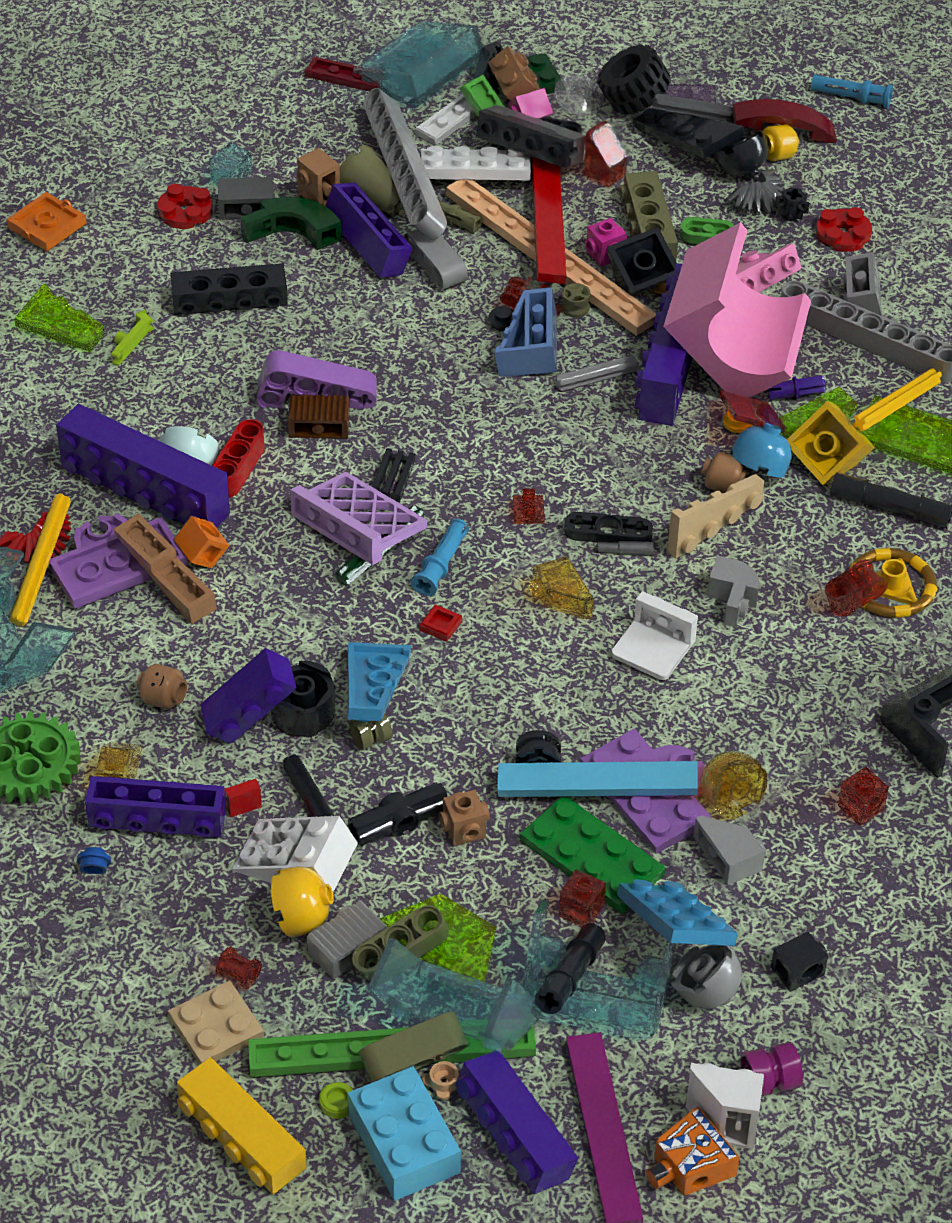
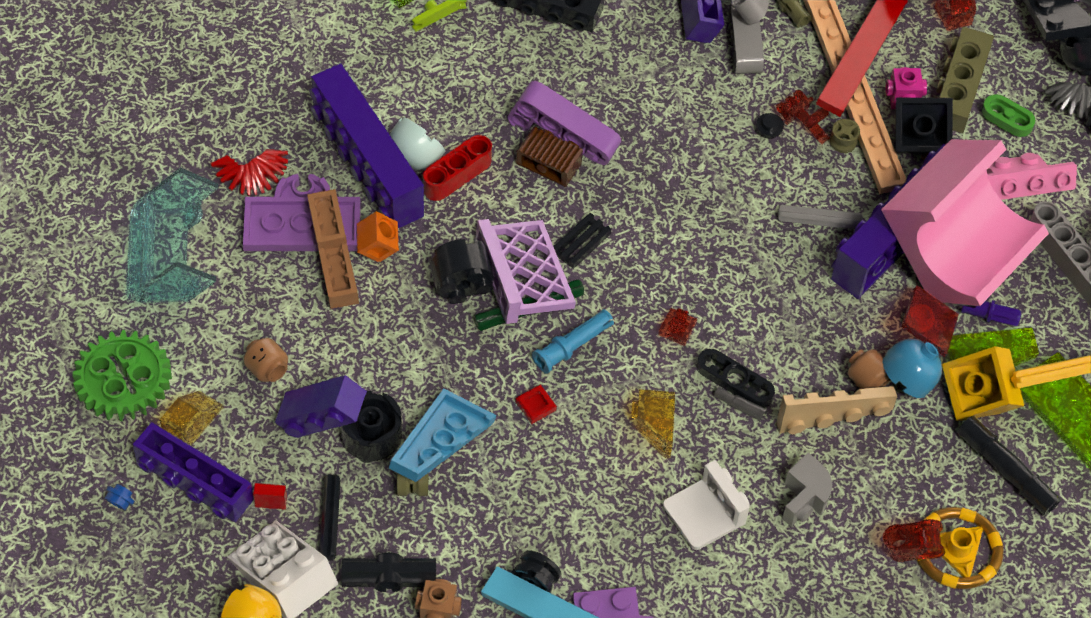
camera: 25 degrees right, 10 degrees up
(40, 560) = (238, 194): yellow axle -> none
(302, 536) = (461, 270): none -> black brick
(532, 336) = (781, 157): medium blue wedge -> none

